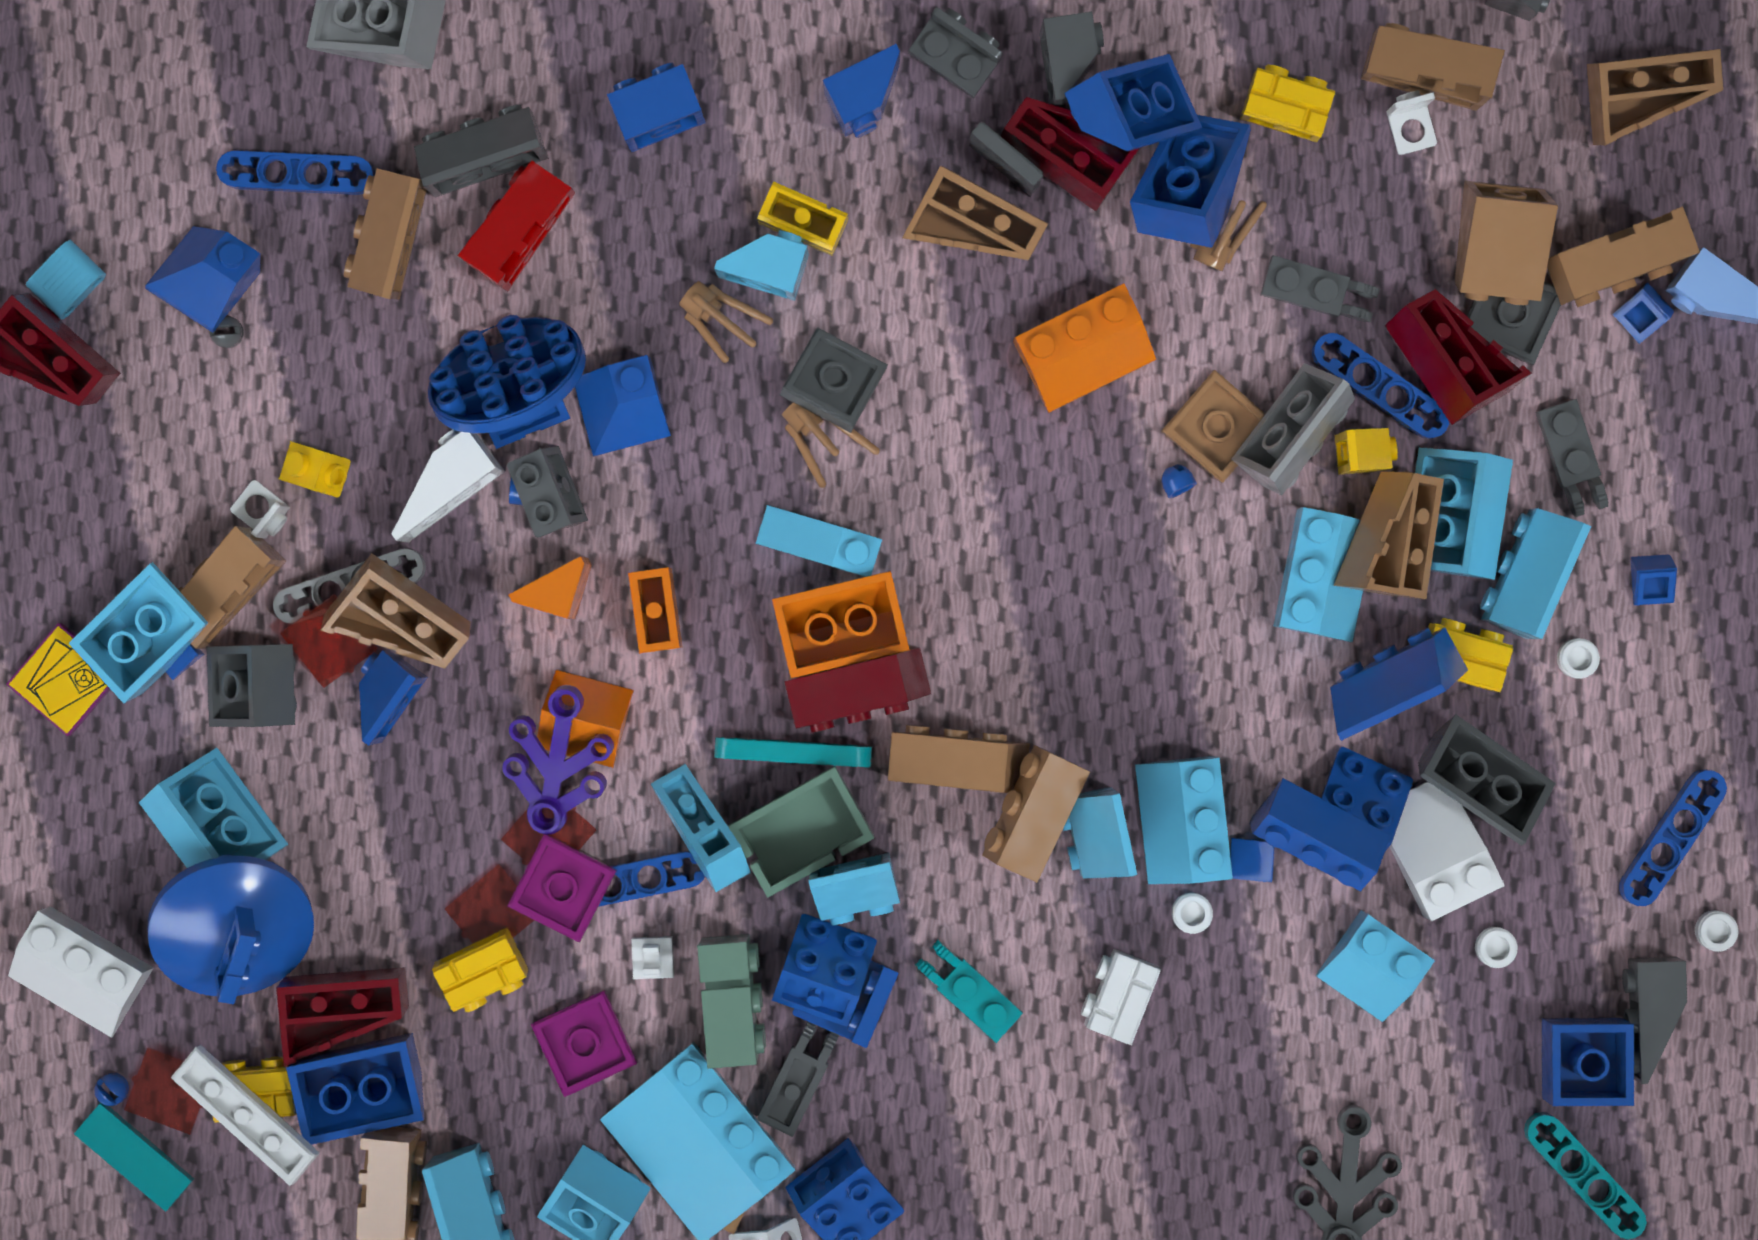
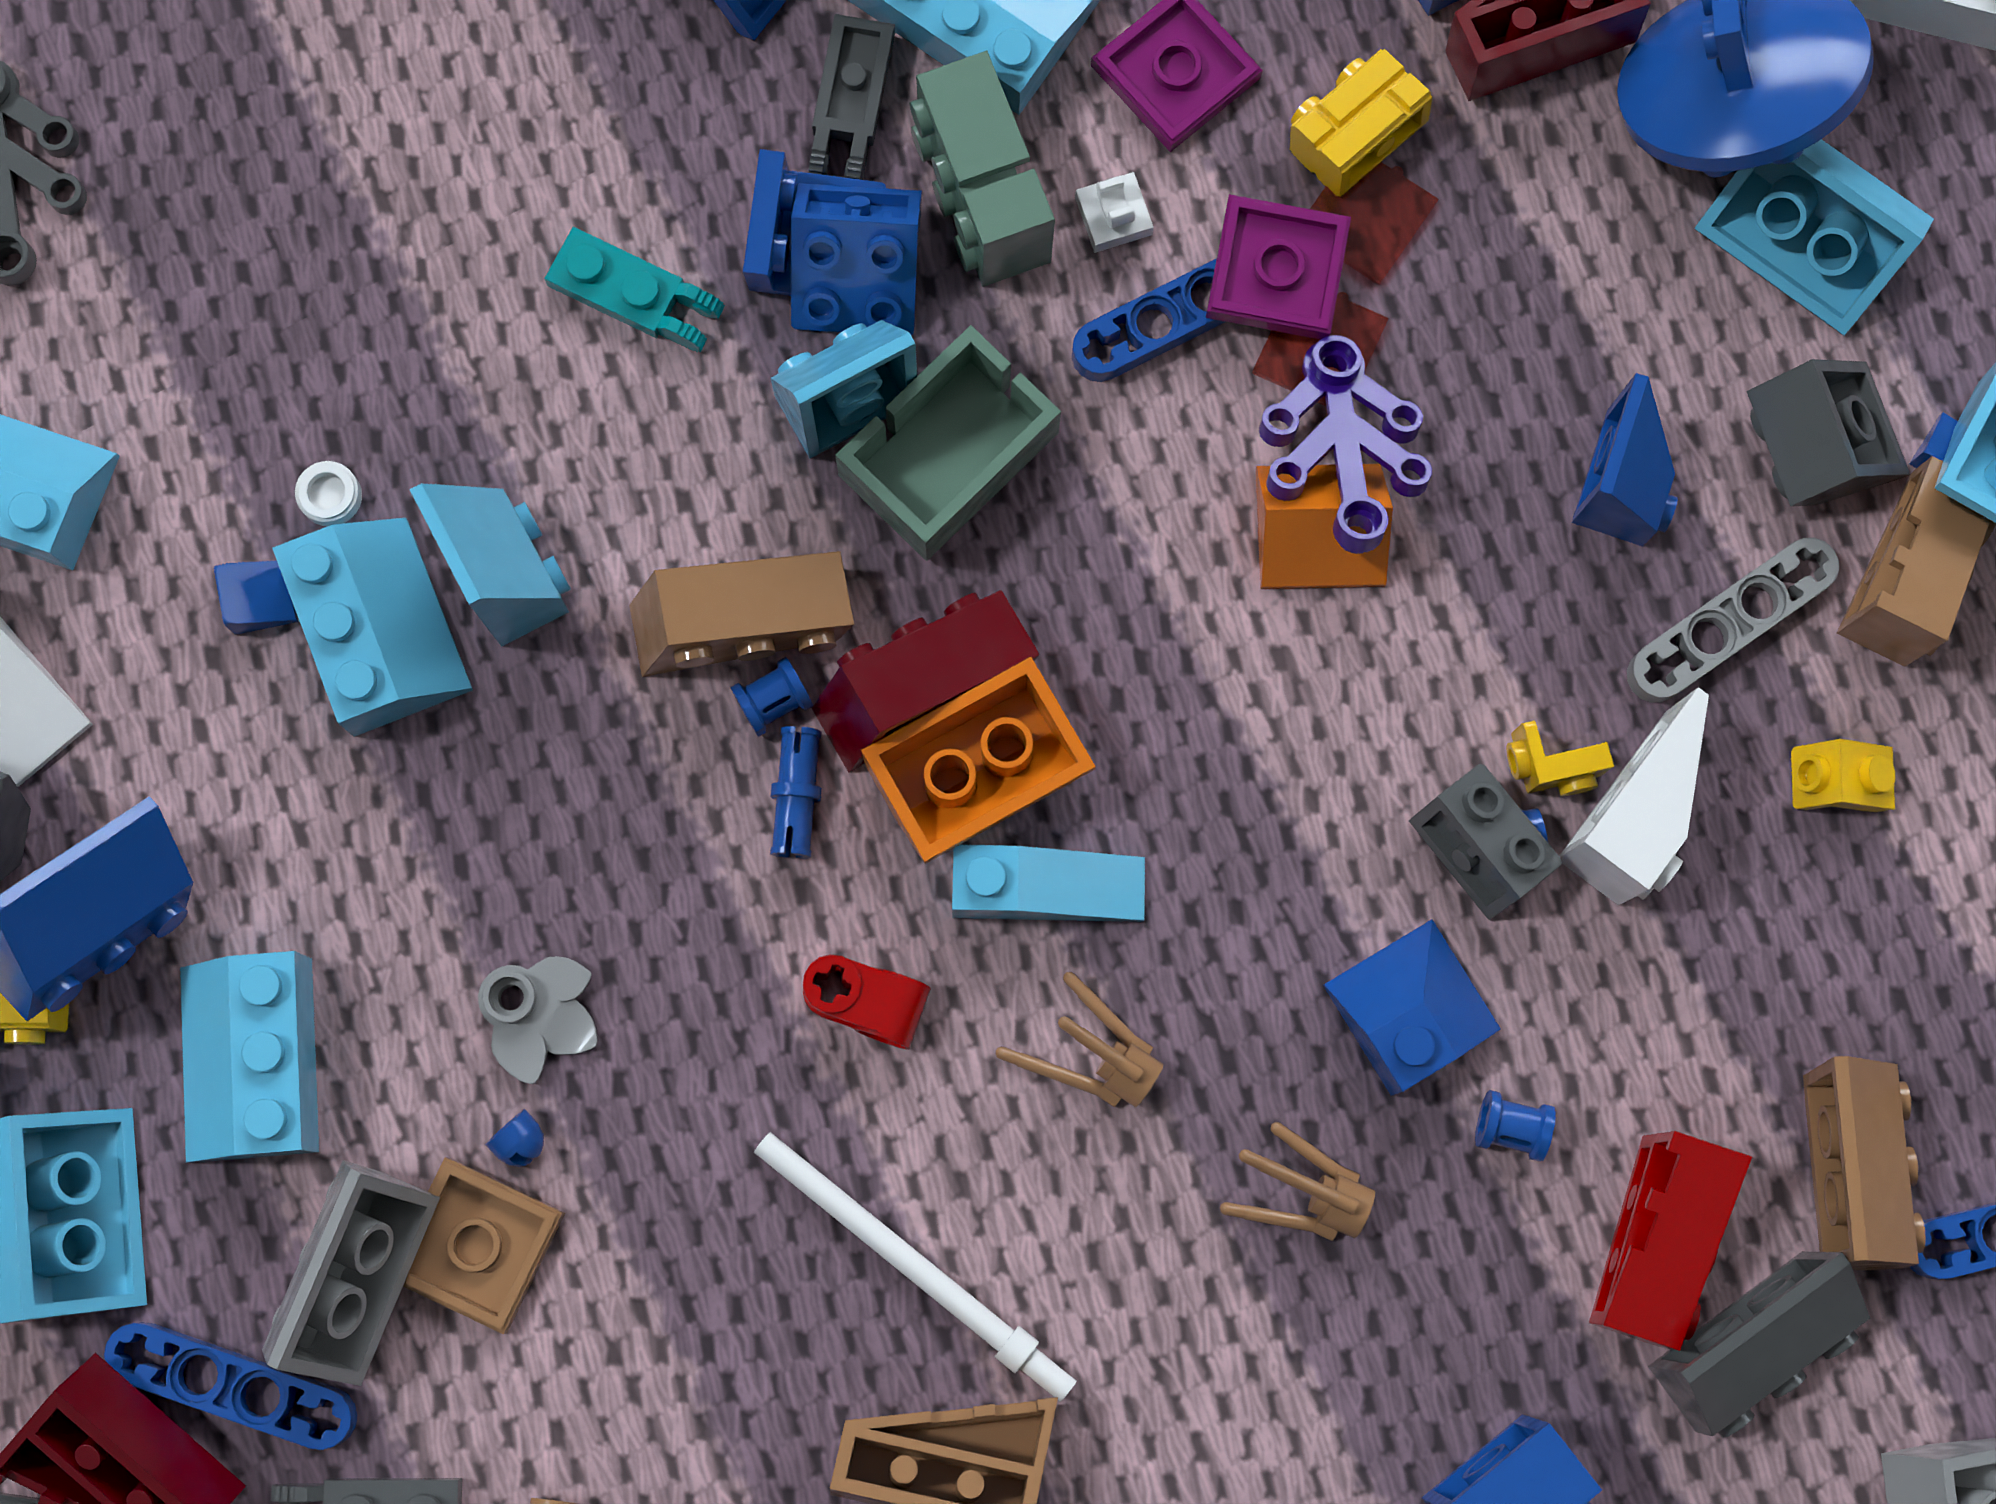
camera: 155 degrees right, 10 degrees down
(272, 520) = (1883, 682): white bracket -> none
(324, 653) = (1736, 530): clear red piece -> none
(396, 614) = (1651, 588): medium nougat wedge -> none
(481, 519) = (1569, 771): none -> yellow bracket
(511, 384) = (1601, 983): blue bracket -> none
(557, 591) = (1422, 684): orange slope -> none
(584, 318) = (1515, 1126): none -> blue bush
(655, 610) = (1266, 706): orange brick -> none
(701, 828) = (1101, 407): medium azure slope -> none
(767, 264) = (1256, 1293): medium azure slope -> none
(792, 752) = (995, 559): teal beam -> none
(803, 216) = (1224, 1384): yellow brick -> none
(833, 380) = (1099, 1141): dark grey tile -> none
(918, 275) = (1014, 1347): none -> white bar
(943, 499) = (879, 1004): none -> red piece
(954, 705) = (772, 696): none -> blue bush
(955, 642) = (795, 792): none -> blue pin
(1035, 813) = (598, 558): medium nougat slope -> none
(1085, 348) = (716, 1309): orange slope -> none
(1121, 996) = (403, 340): white brick -> none
(1142, 547) = (545, 1021): none -> light grey plate
(1320, 834) = (150, 646): blue slope -> none
(1365, 450) = (228, 1269): yellow slope -> none
(1367, 790) = (105, 721): blue bracket -> none
(1395, 537) = (144, 1144): medium nougat wedge -> none

